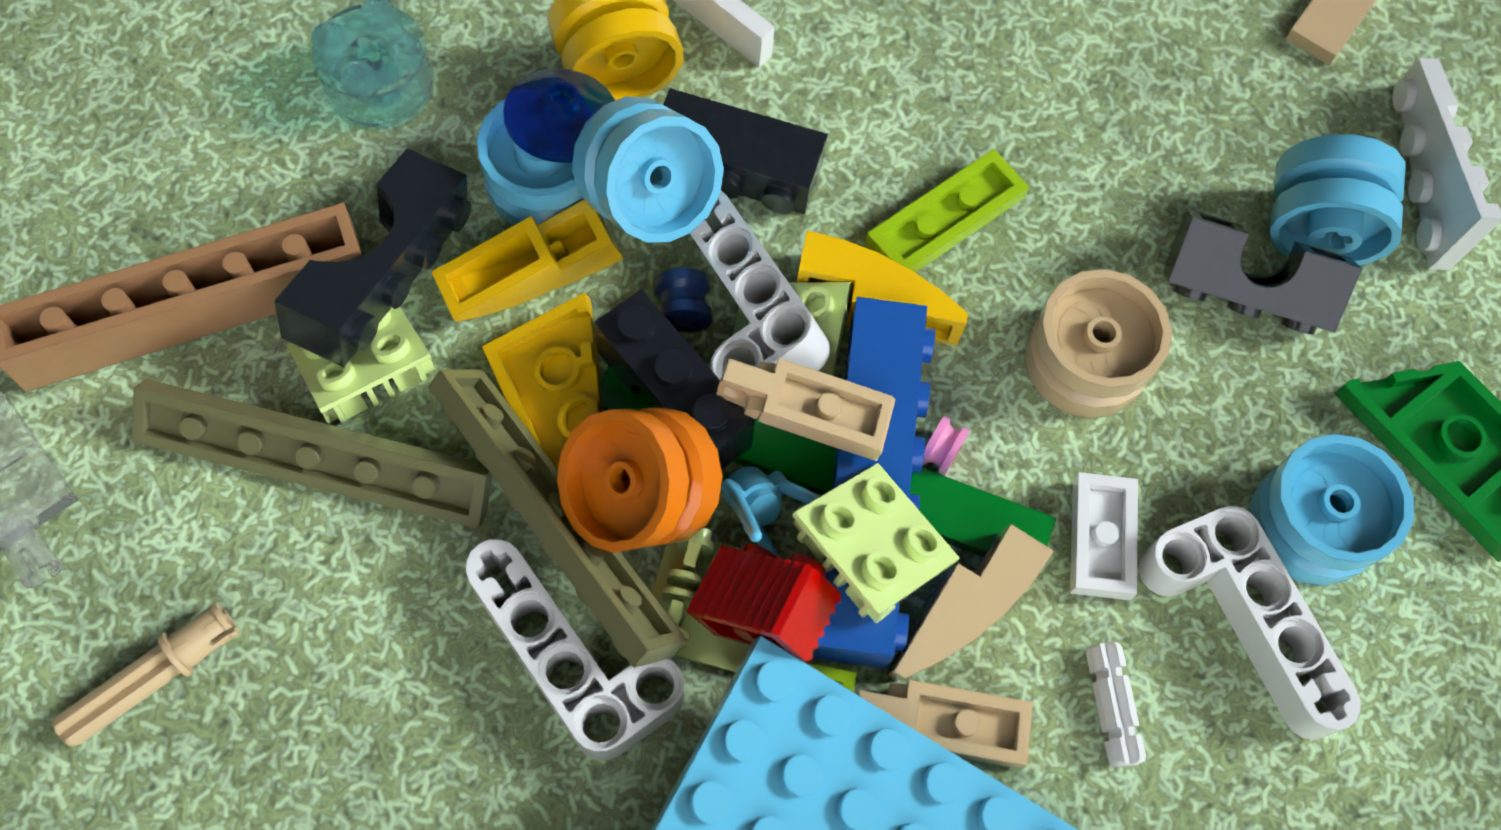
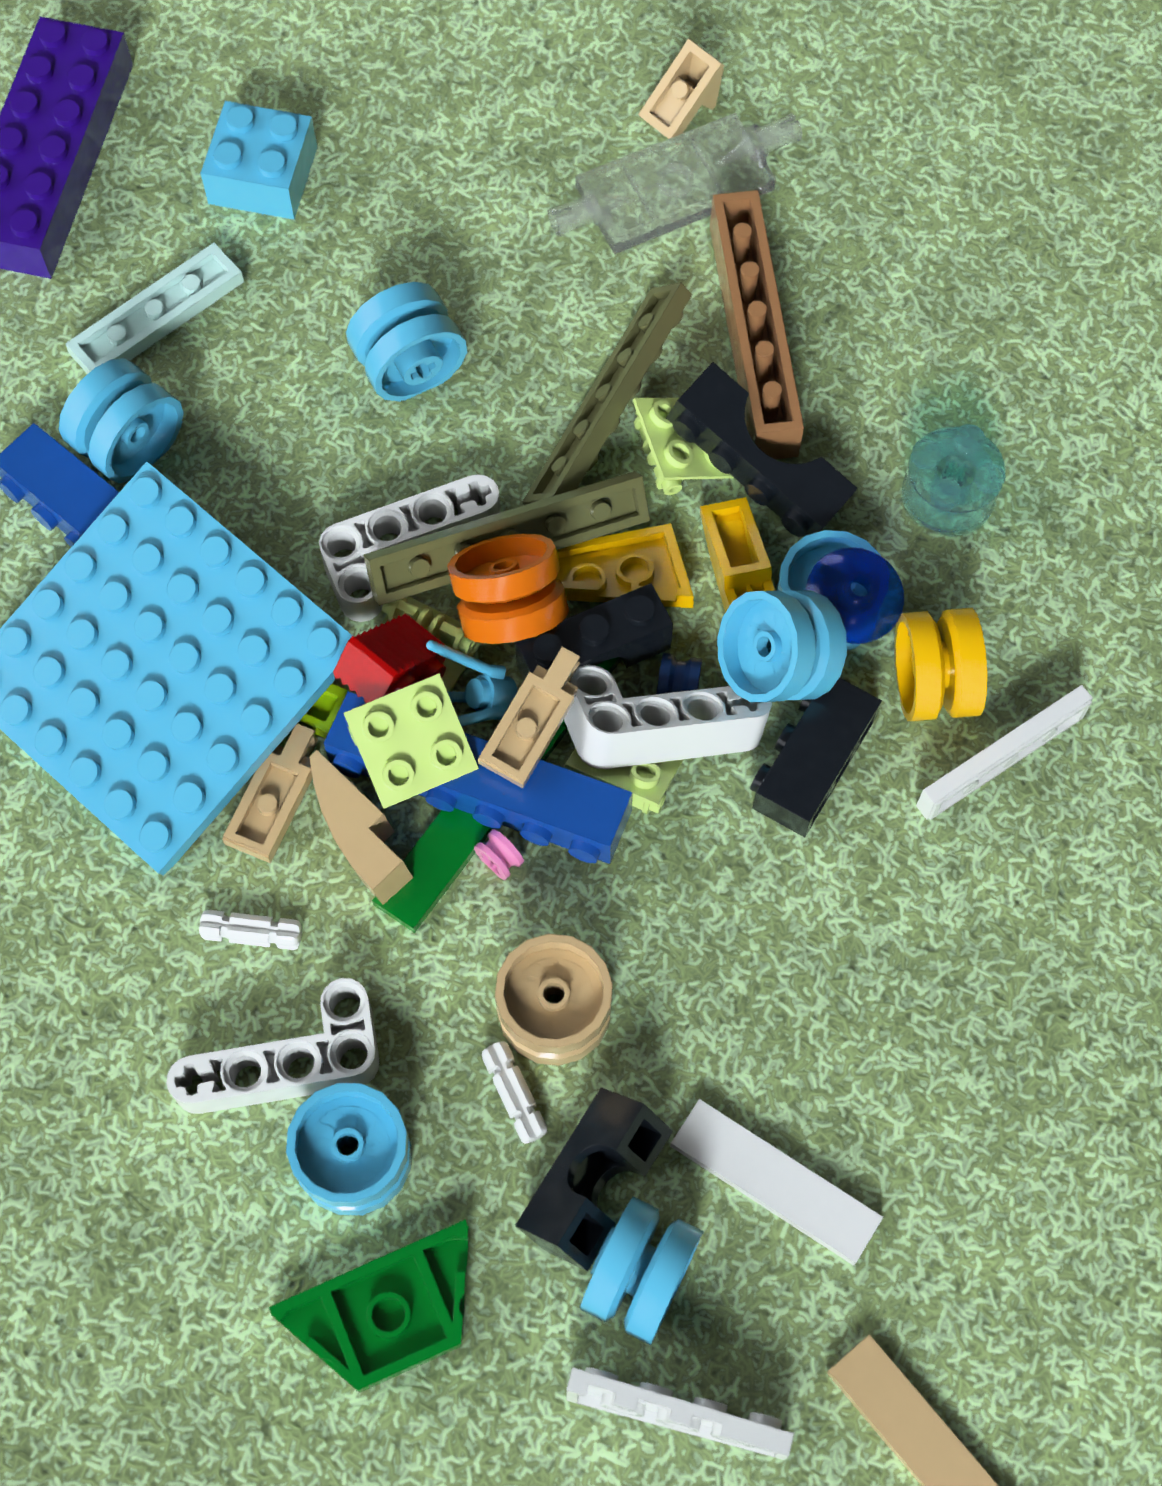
camera: 110 degrees right, 0 degrees up
(171, 657) = (476, 297): tan axle -> none
(262, 724) = (406, 341): none -> medium azure wheel
(880, 278) = (654, 834): yellow slope -> none
(949, 212) = (720, 922): lime plate -> none
(1104, 536) = (387, 962): white plate -> none
(1182, 129) = (776, 1182): none -> white tile
(1189, 376) = (514, 1092): none -> white axle

